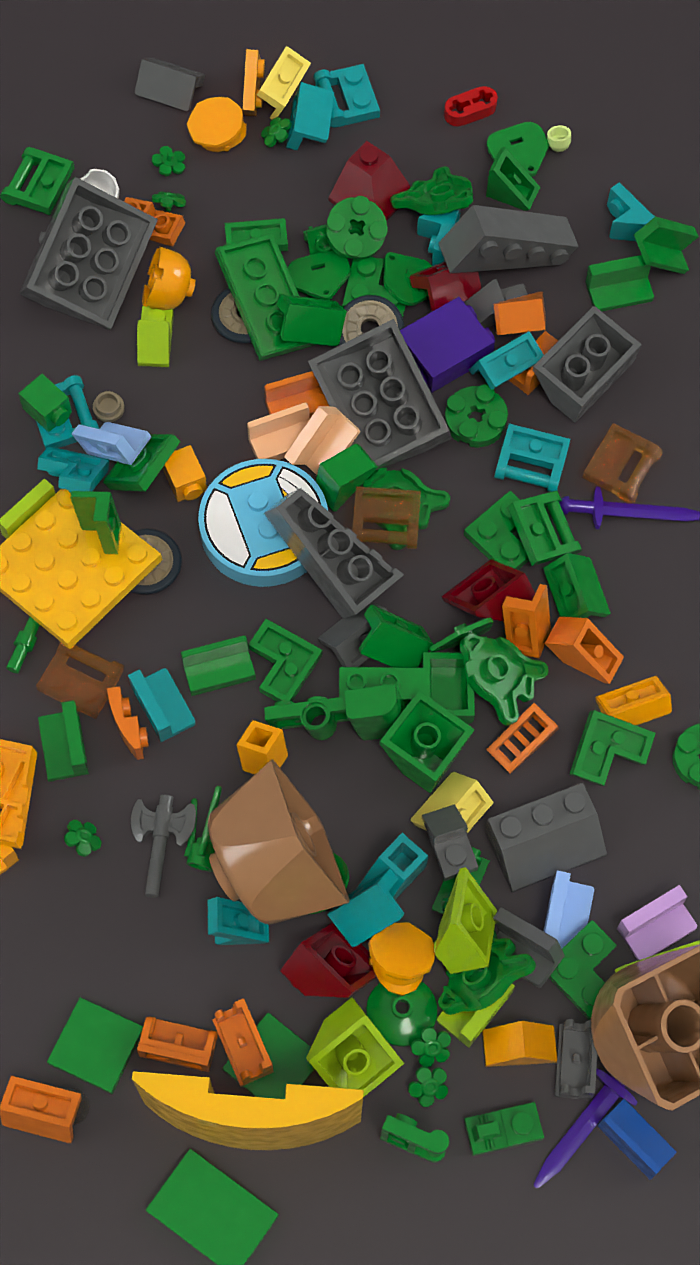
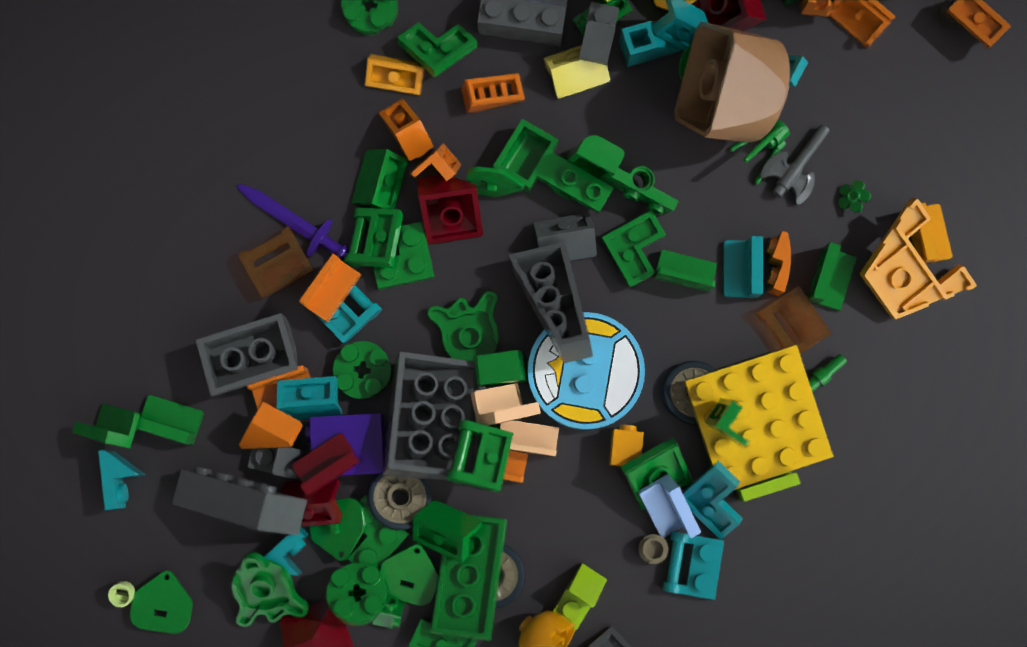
camera: 150 degrees left, 15 degrees up
(45, 403) = (710, 569): green brick -> none
(95, 1045) = (915, 47): green tile -> none
(260, 745) = (692, 181): light orange brick -> none
(306, 379) = (489, 460): none -> green plate
(387, 507) = (486, 323): clear orange plate -> none
(394, 639) = (543, 211): green panel -> none
(425, 741) = (569, 115): green slope -> none
(451, 307) = (325, 464): none -> dark red panel
(500, 673) = (482, 140): green tile -> none
(511, 182) = (192, 570): green slope -> none
(552, 458) = (330, 288): none -> orange panel

